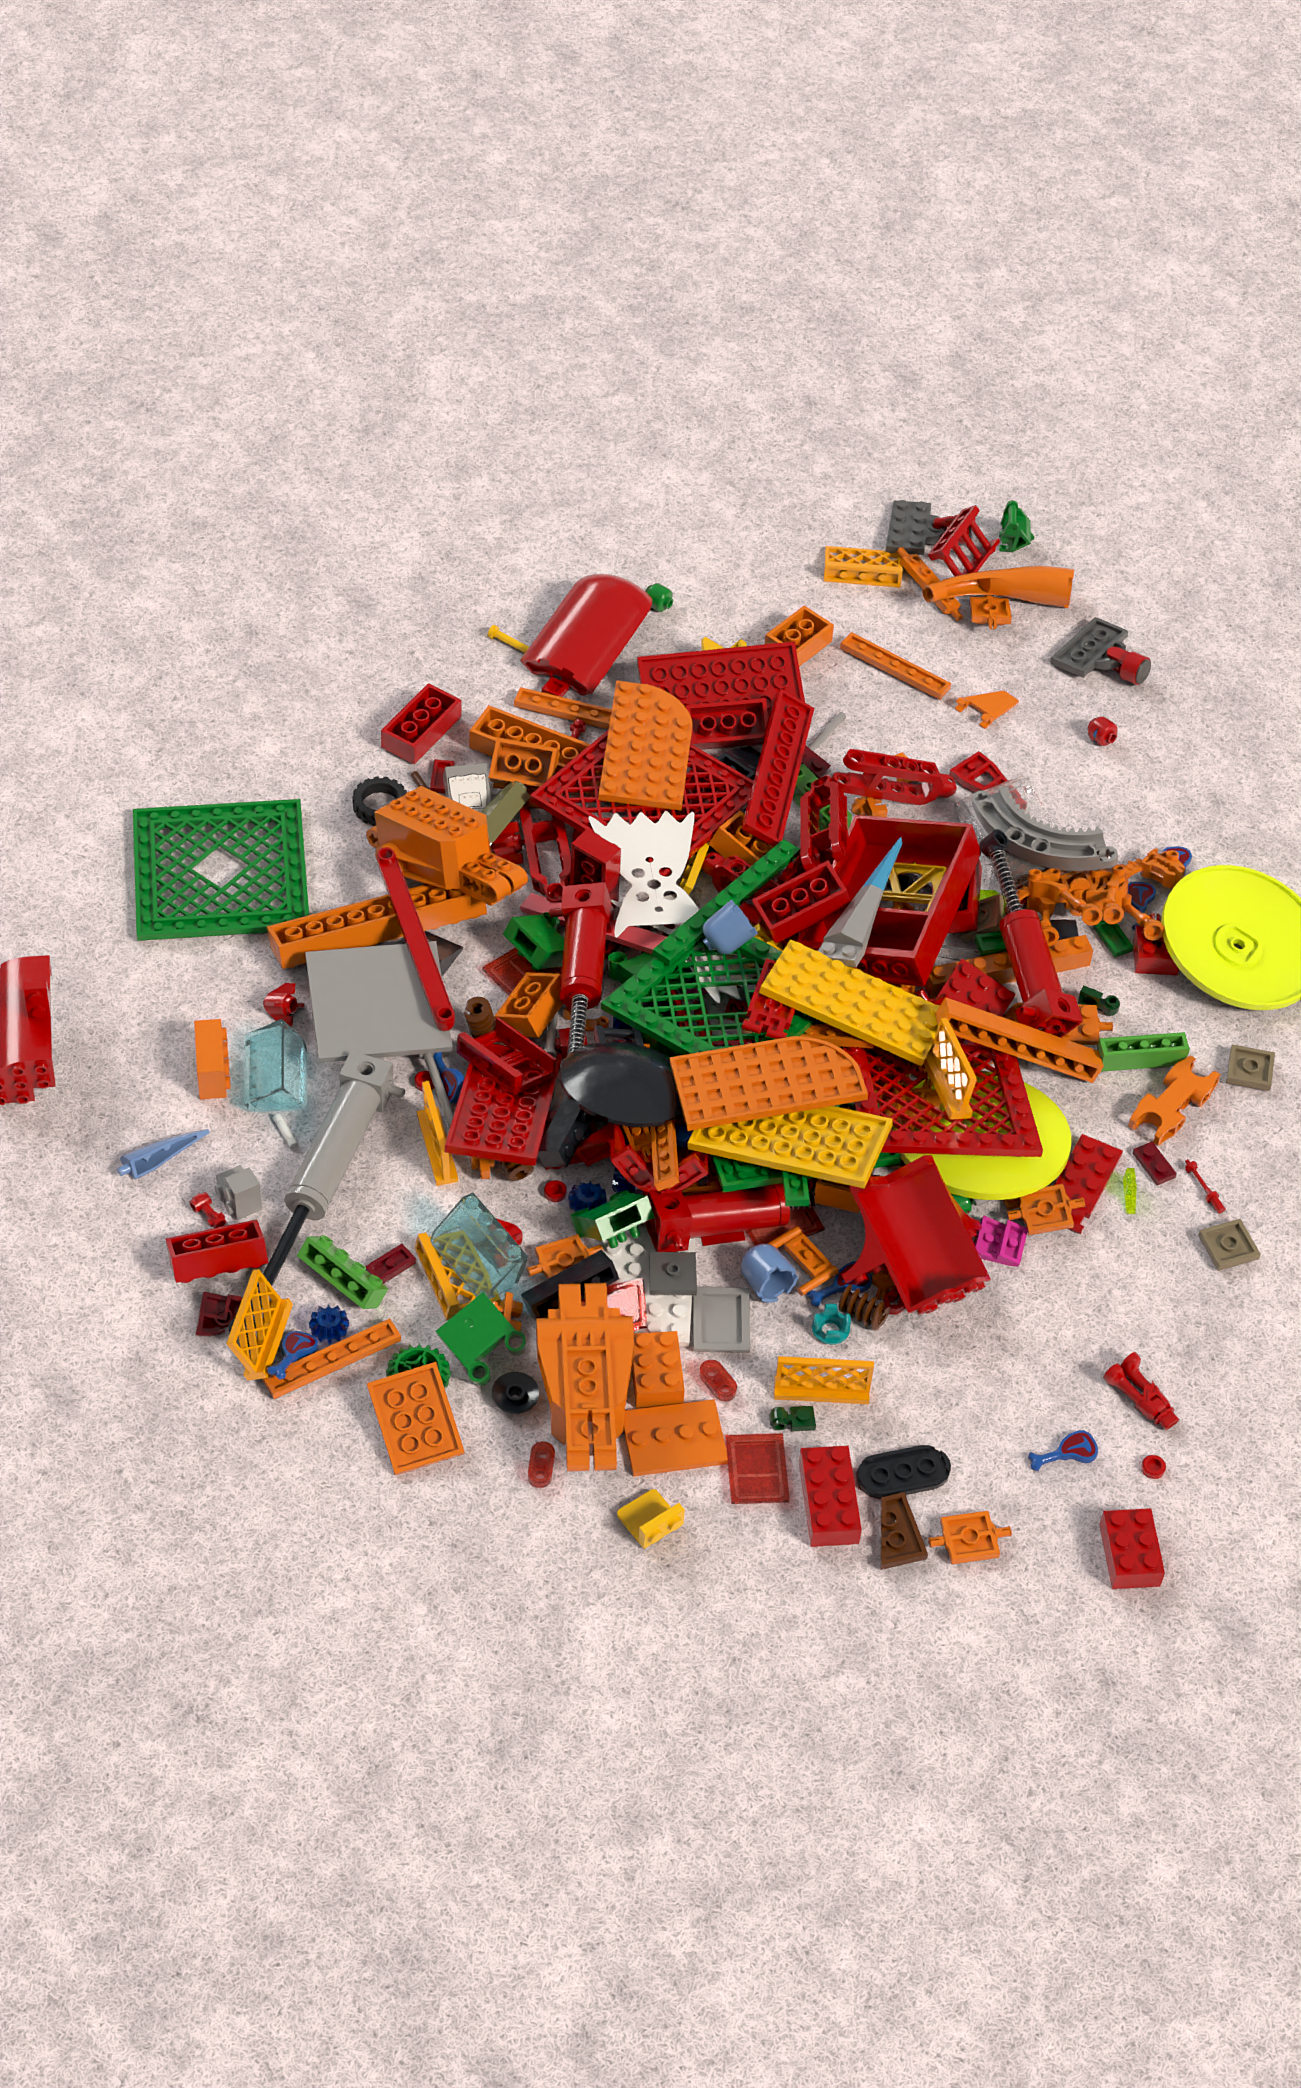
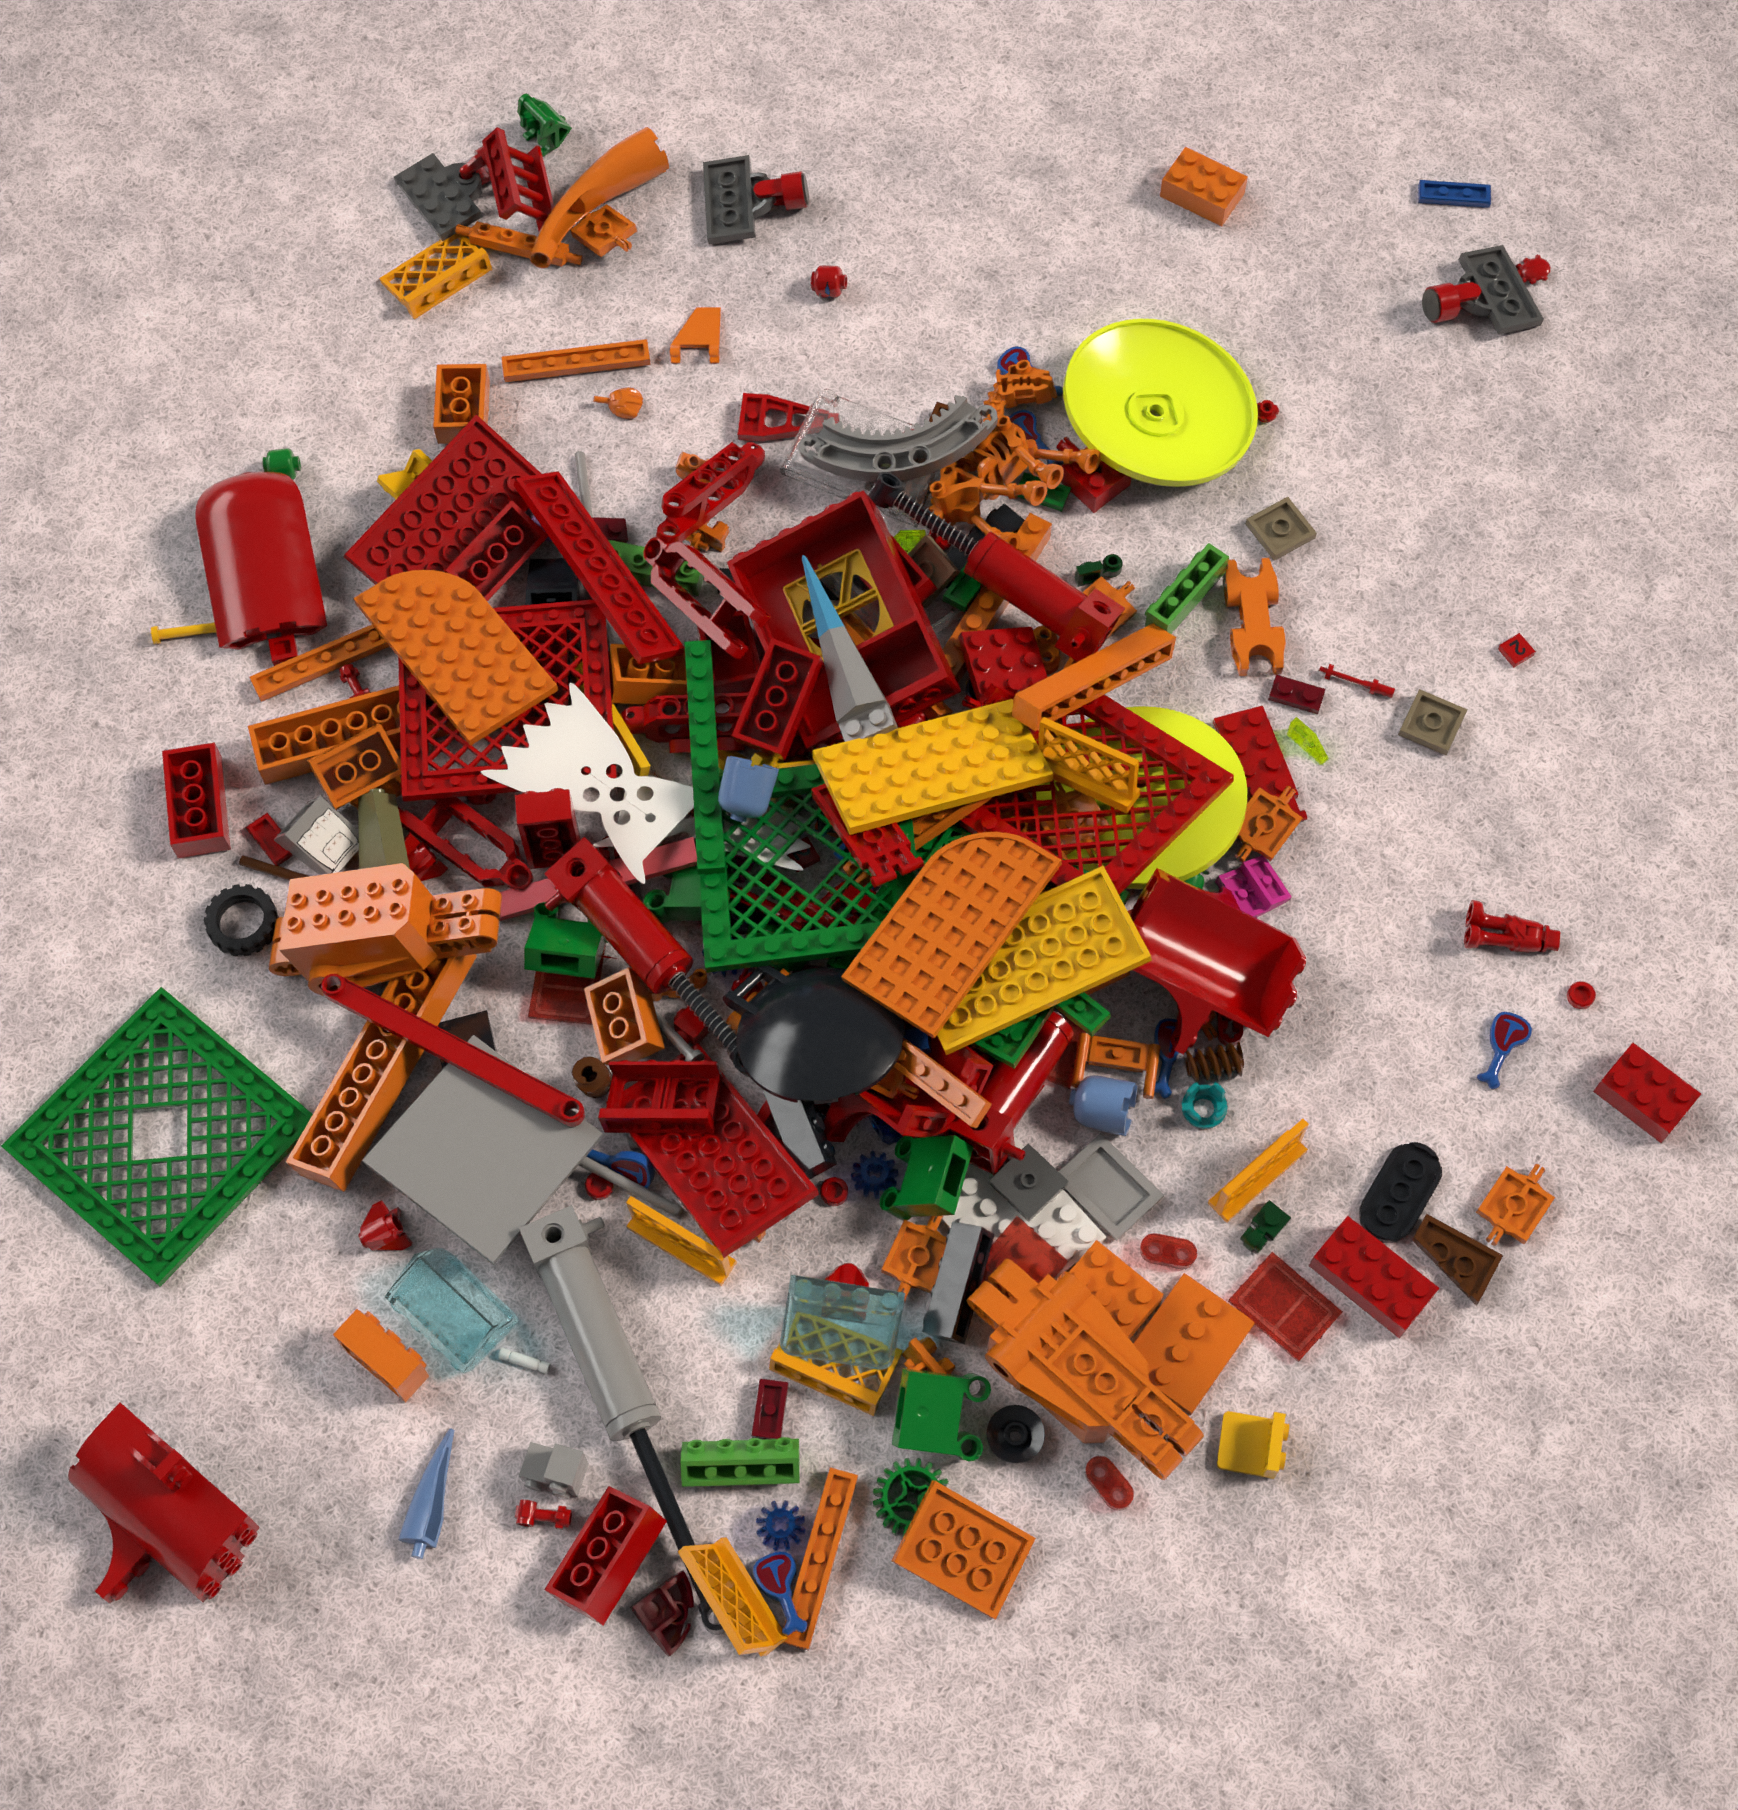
camera: 40 degrees left, 15 degrees up
(899, 706) = (623, 402): none -> orange piece

